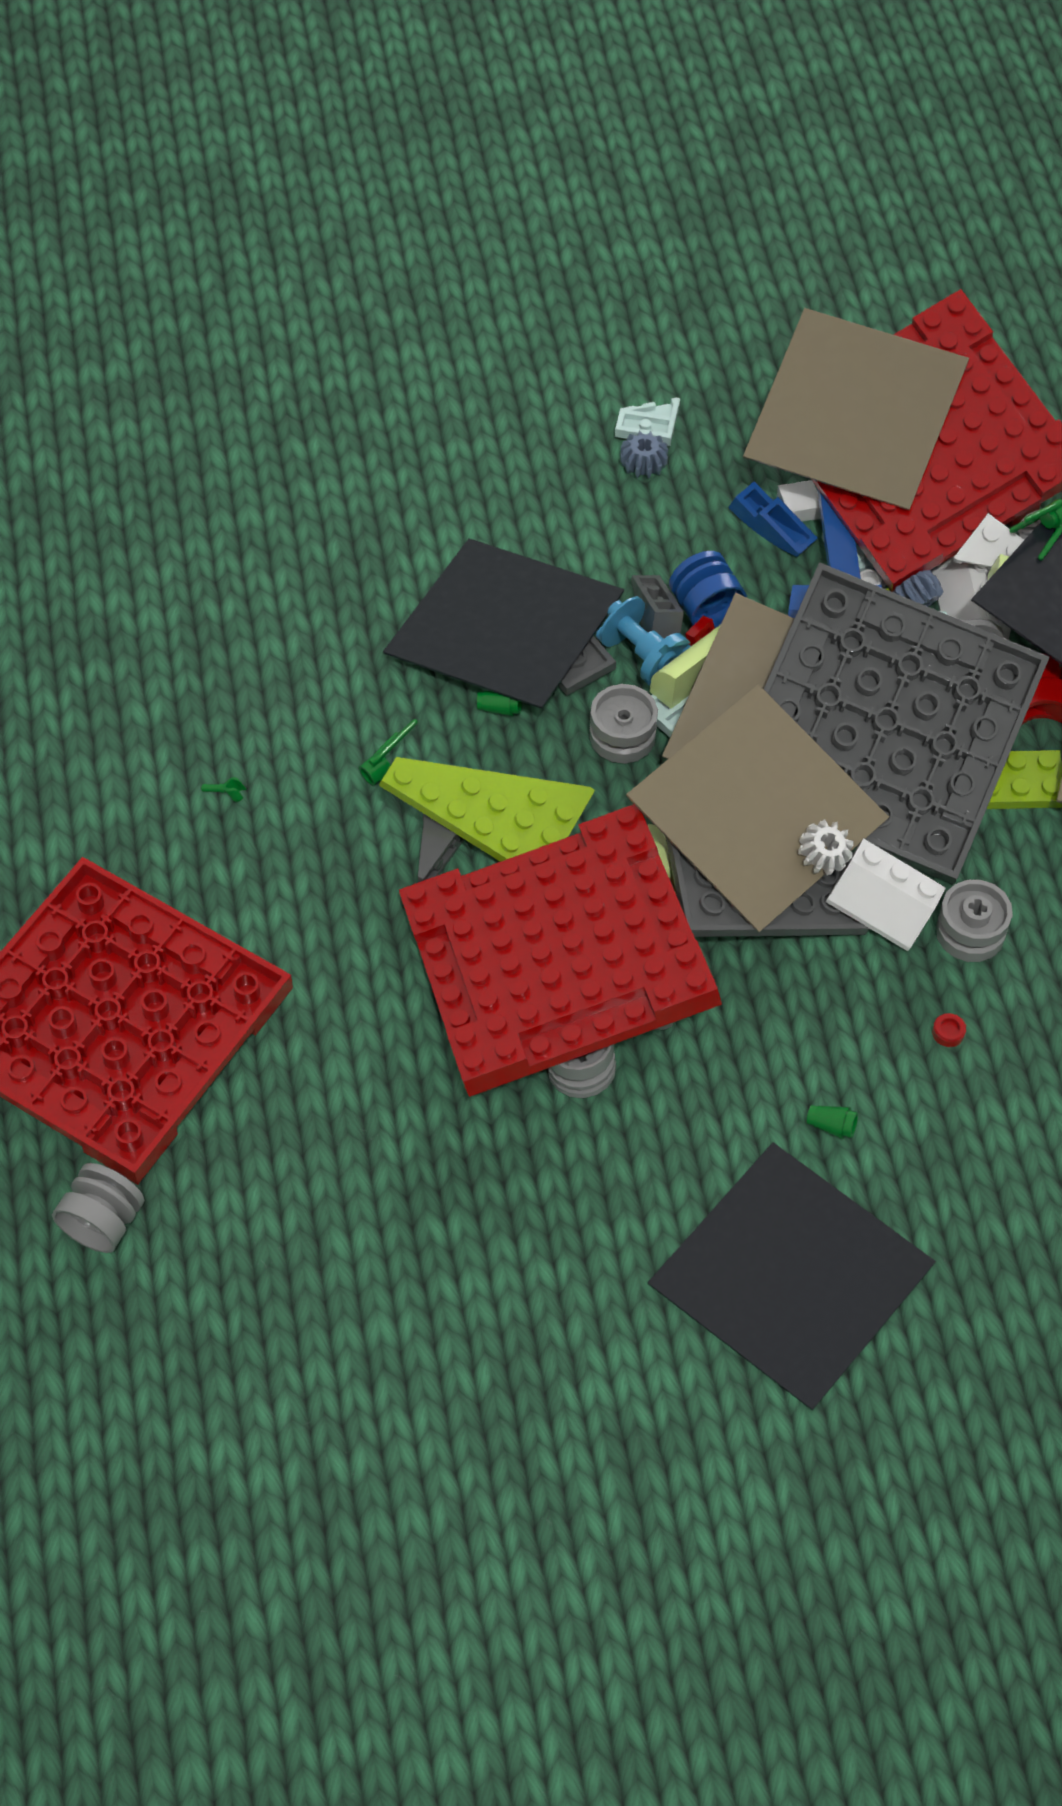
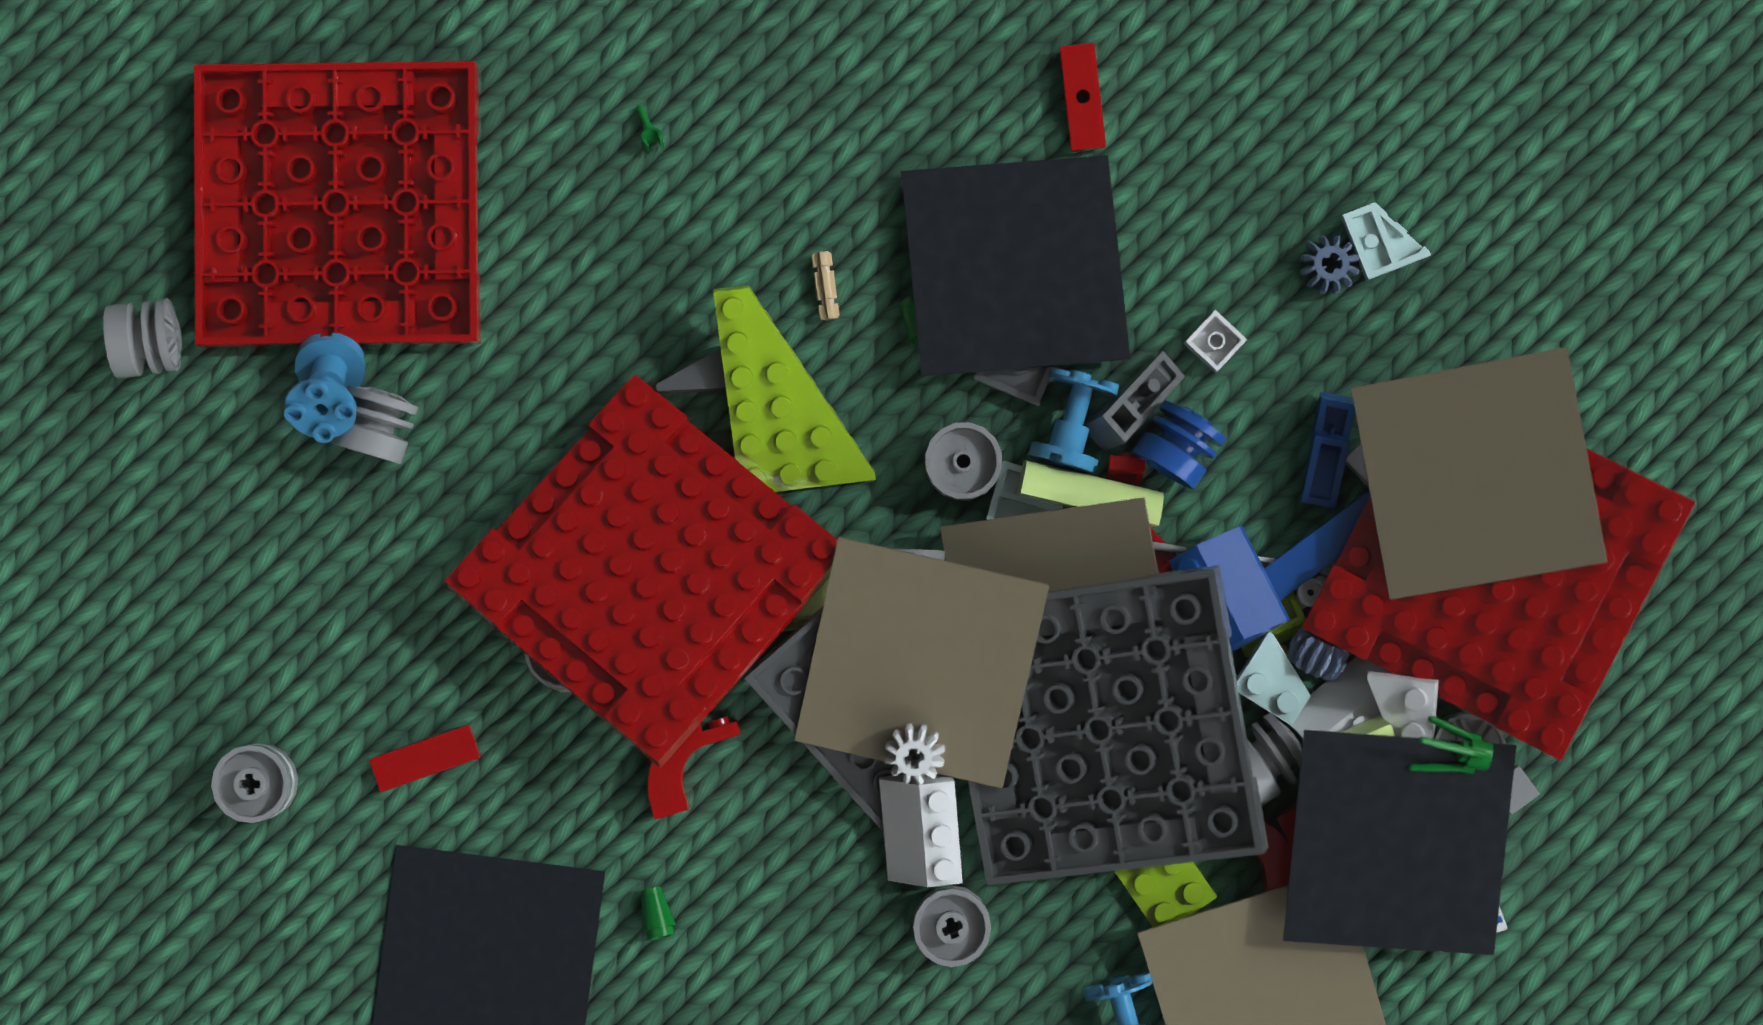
camera: 55 degrees right, 30 degrees up
(244, 1087) = (320, 402): none -> dark azure piece
(299, 1081) = (376, 424): none -> light grey wheel
(376, 766) = (764, 256): green plant -> none
(417, 526) = (1081, 76): none -> red tile
(430, 745) = (825, 285): none -> tan axle
(522, 1348) = (234, 787): none -> light grey wheel
(590, 1216) = (425, 758): none -> red tile
(648, 544) = (1215, 341): none -> white piece
(721, 1044) = (666, 783): none -> red arch
(949, 1030) = (824, 963): red tile -> none

